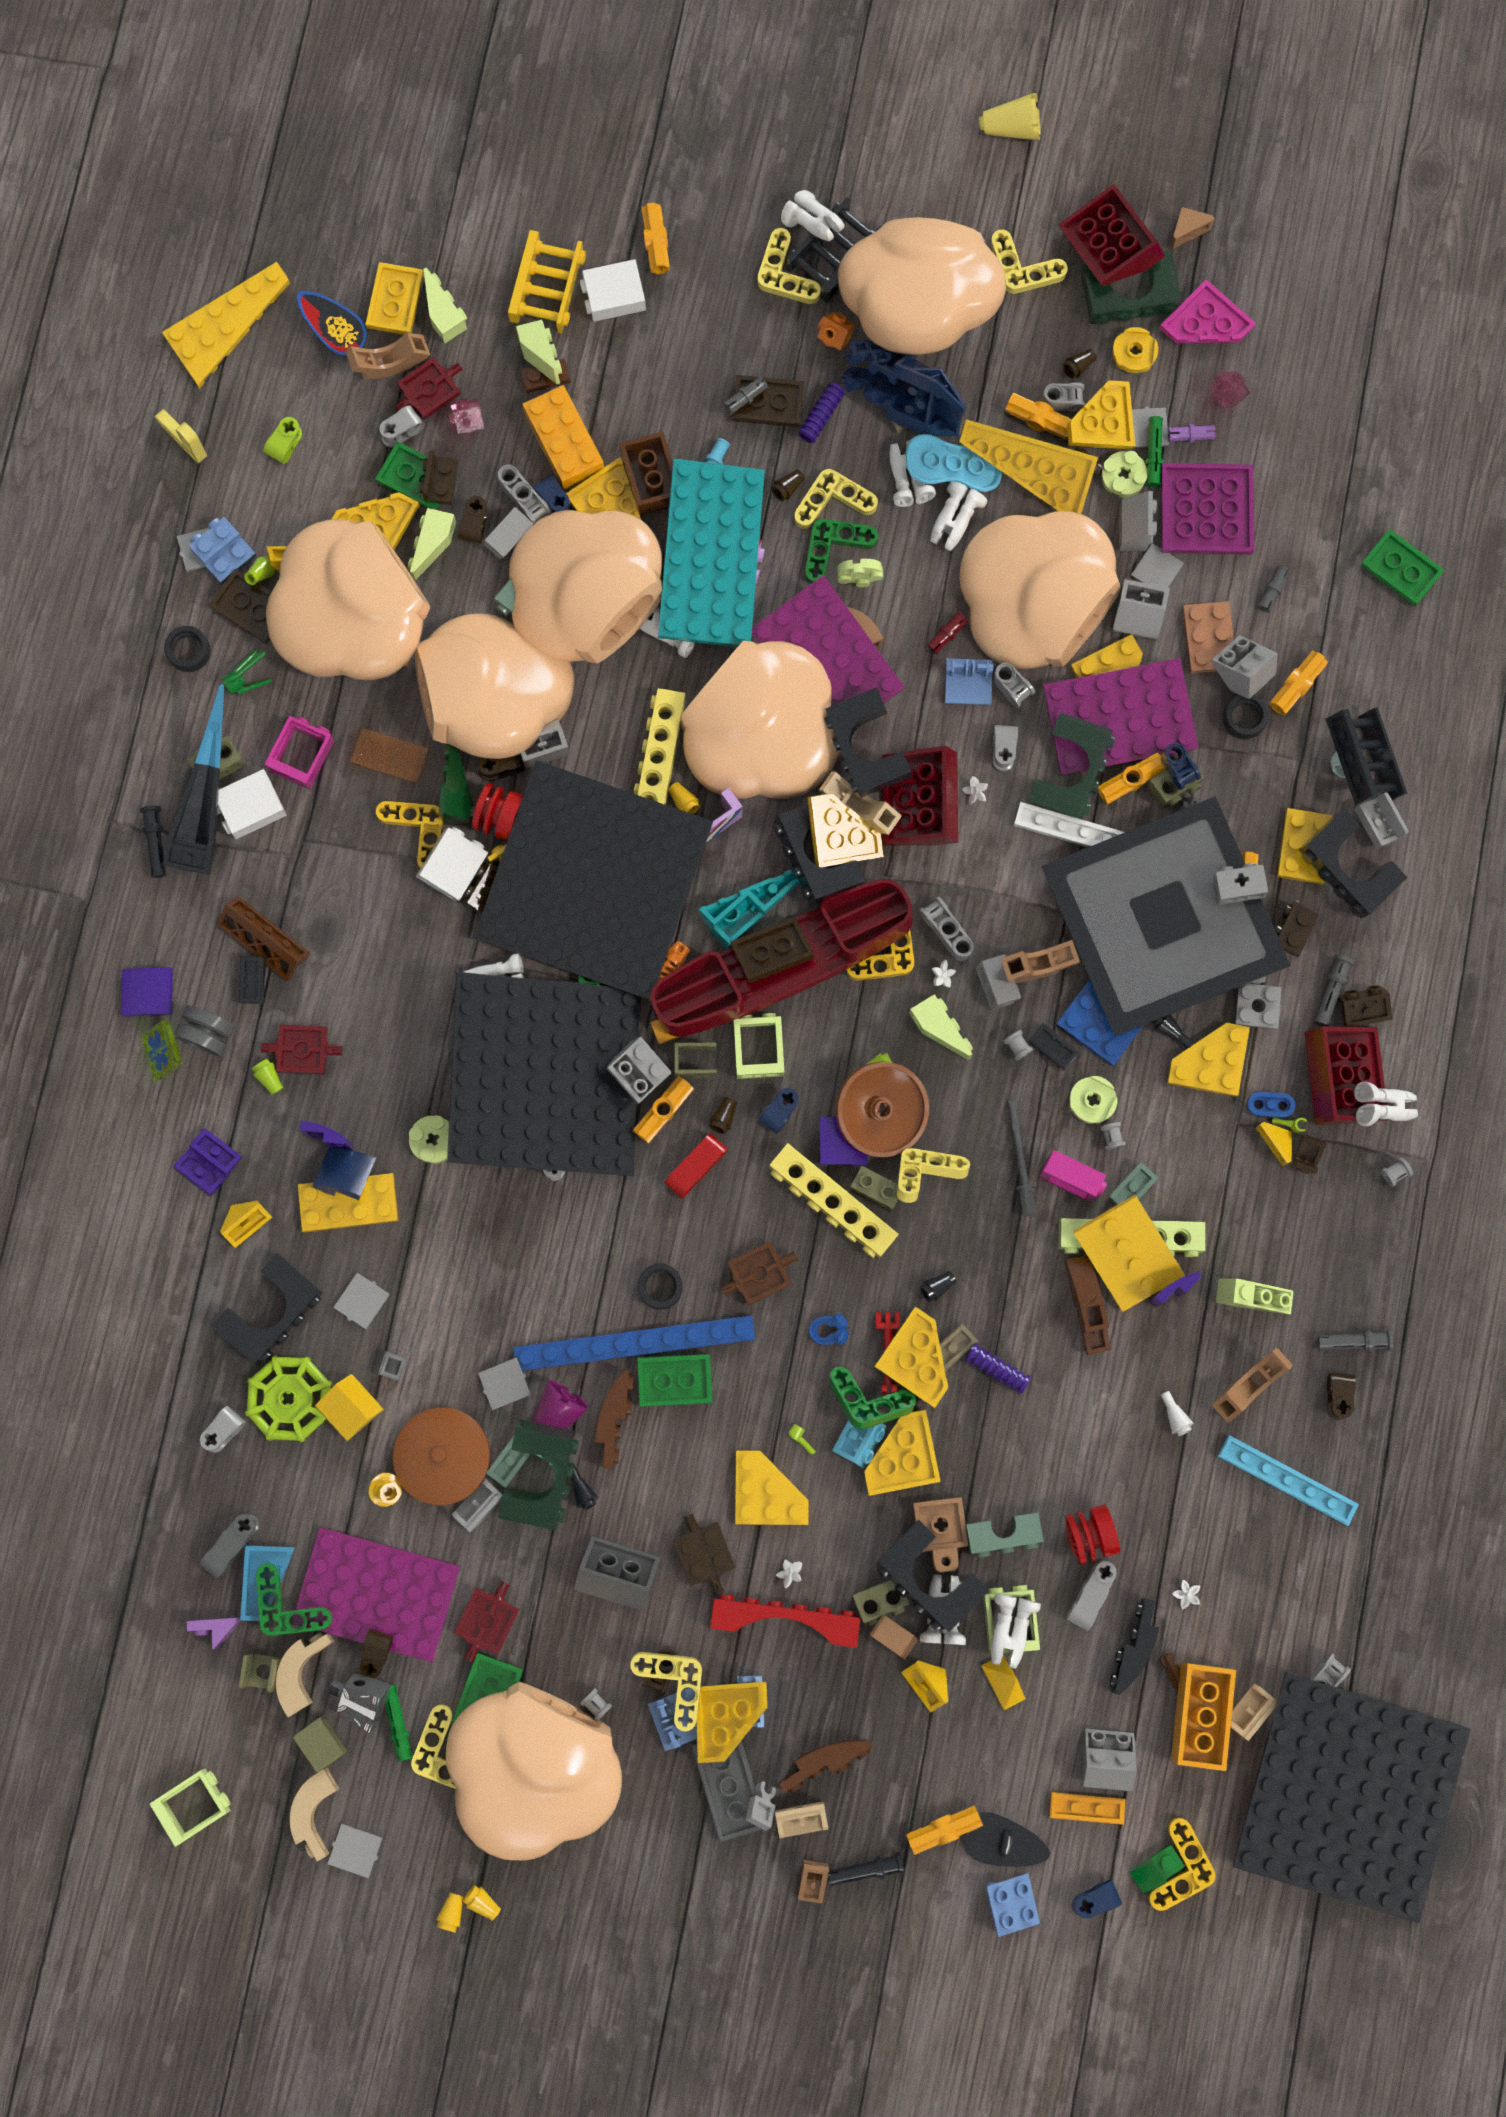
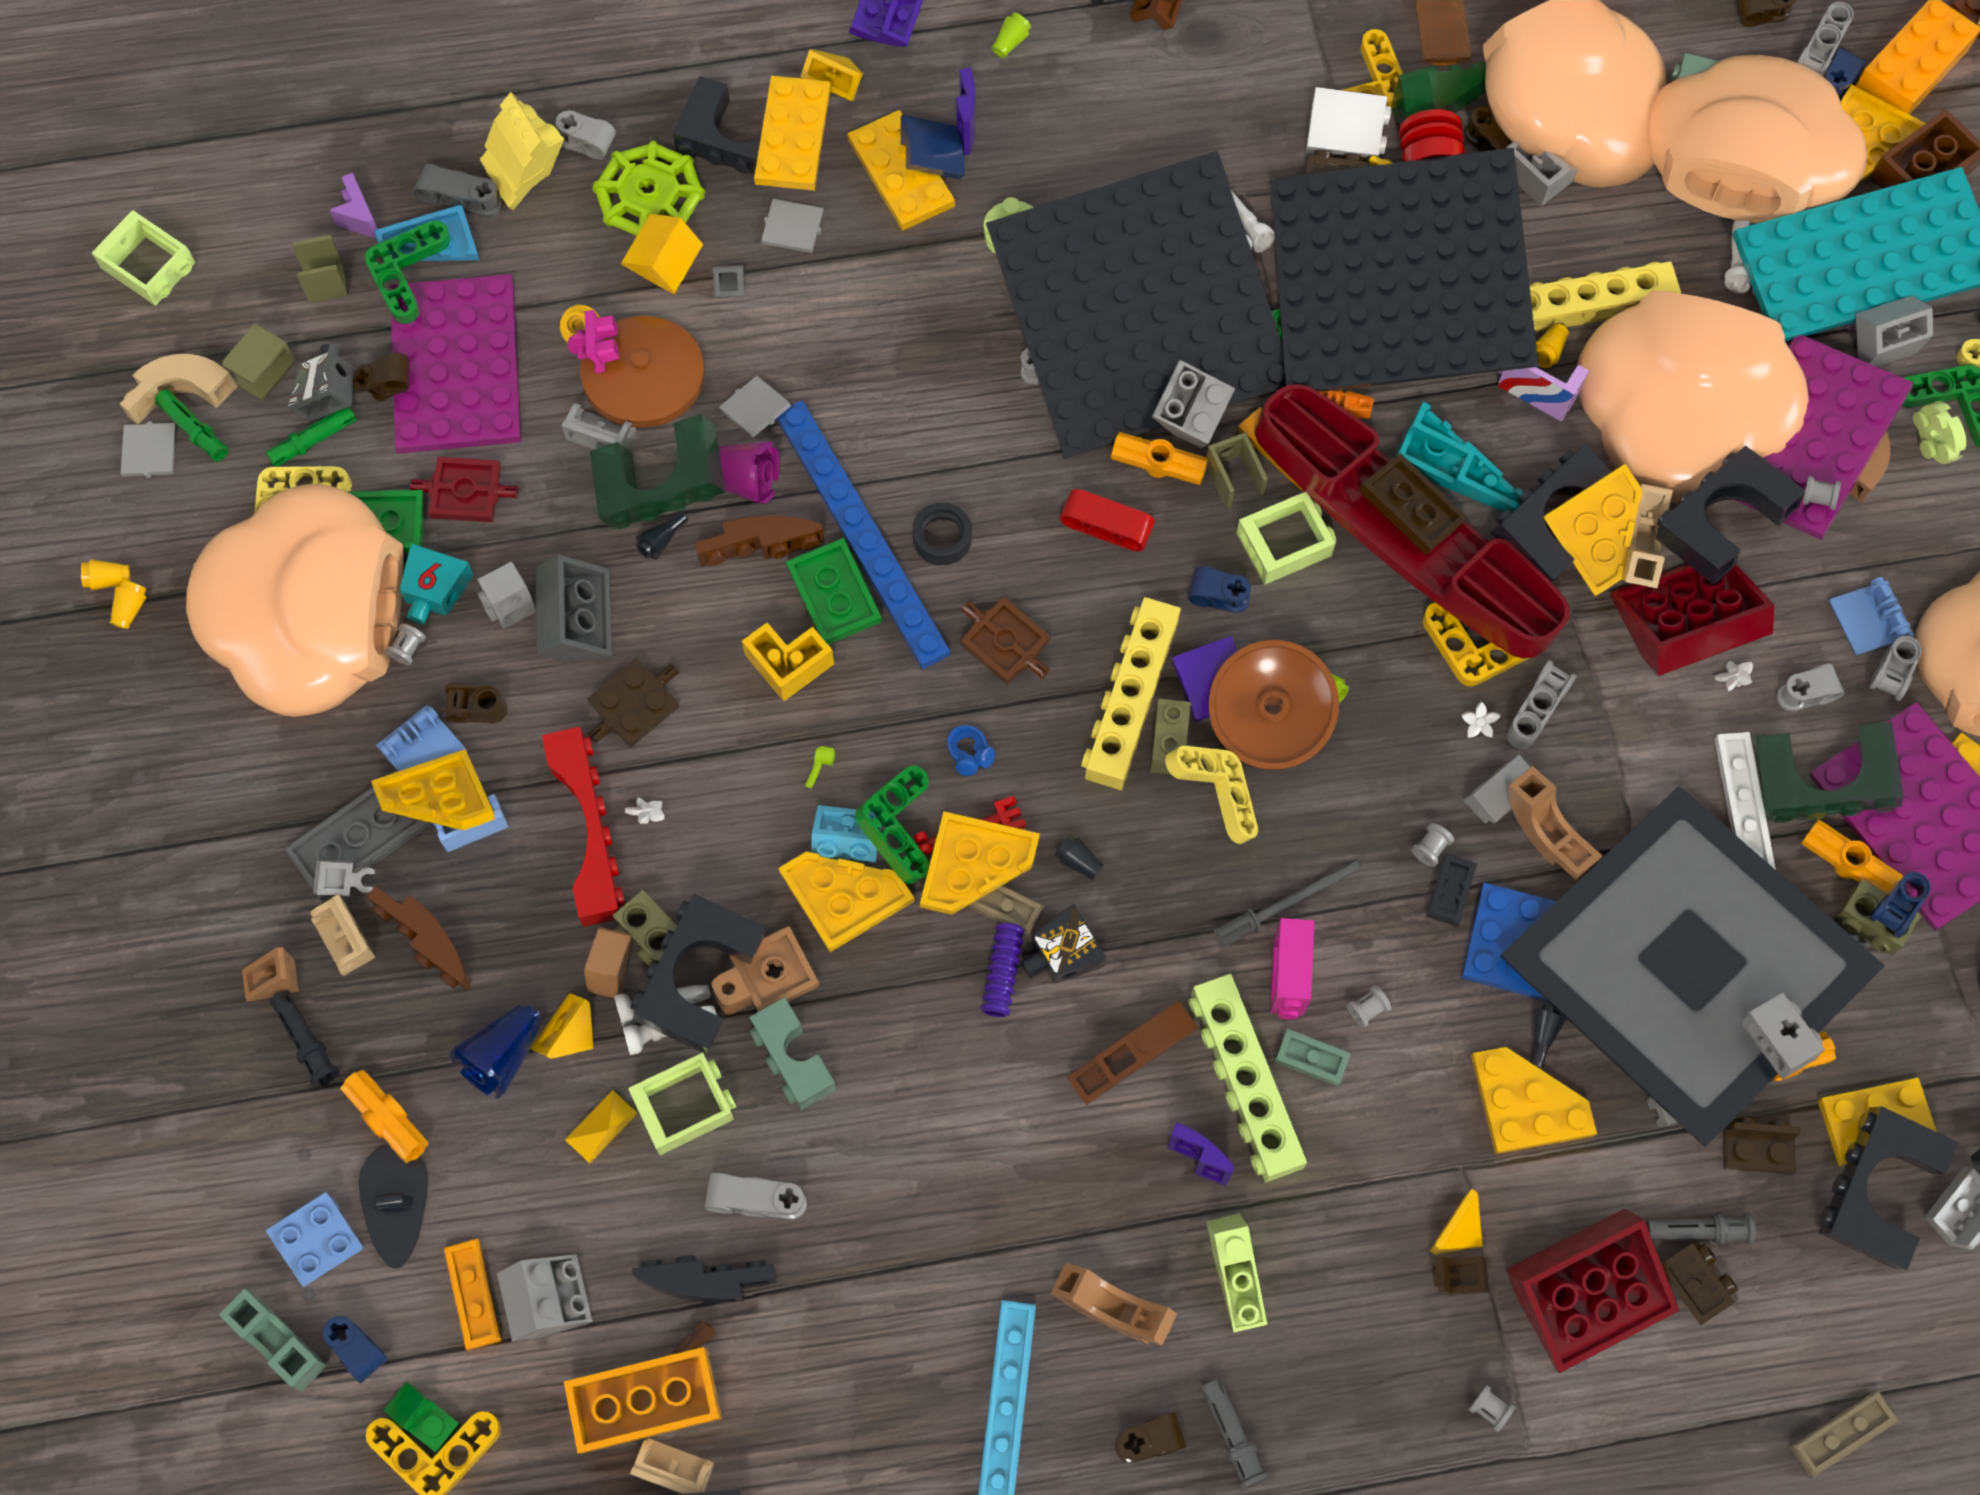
camera: 70 degrees right, 10 degrees down
(223, 1486) = (519, 150): none -> light yellow slope
(289, 1673) = (331, 303): tan arch -> none
(293, 1273) = (792, 133): none -> yellow plate
(301, 1049) = (1057, 57): dark red plate -> none
(350, 1811) = (199, 433): none -> green pin
(403, 1479) = (591, 341): none -> dark pink hips
(507, 533) = (1770, 40): light grey hinge -> none
(507, 1465) = (655, 444): sand green plate -> none
(555, 1670) = (432, 582): none -> teal torso
(591, 1619) = (505, 596): none -> light grey brick
(677, 1673) = (471, 716): light yellow beam -> none
(722, 1118) = (1181, 529): dark brown cone -> none
(724, 1435) = (791, 665): none -> yellow brick
(766, 1494) = (735, 749): yellow plate -> none
(773, 565) = (1893, 330): none -> light grey slope
(879, 675) = (1821, 493): none -> light grey bush
(928, 1733) = (498, 1050): none -> clear blue cone
(937, 1025) = (1413, 731): yellowish green slope -> none
(947, 633) = (1919, 568): dark red pin -> none
(999, 1321) = (1064, 948): none -> torso
(1017, 1640) = (653, 1088): white piece -> none
(1064, 1957) = (273, 1339): none -> sand green arch
(1080, 1105) = (1391, 978): yellowish green plate -> none
(1092, 1534) = (827, 1156): red wheel -> none
(1128, 1253) = (1223, 1073): yellow plate -> none
(1178, 1420) = (1028, 1229): white cone -> none
(1187, 1594) = (801, 1326): white plant -> none
(1268, 996) = (1641, 1118): light grey piece -> none
(1270, 1105) = (1506, 1200): blue plate -> none
(1289, 1123) = (1492, 1237): lime hand -> none
(1370, 1113) = (1556, 1330): white piece -> none
(1486, 962) = (1844, 1433): none -> dark tan tile

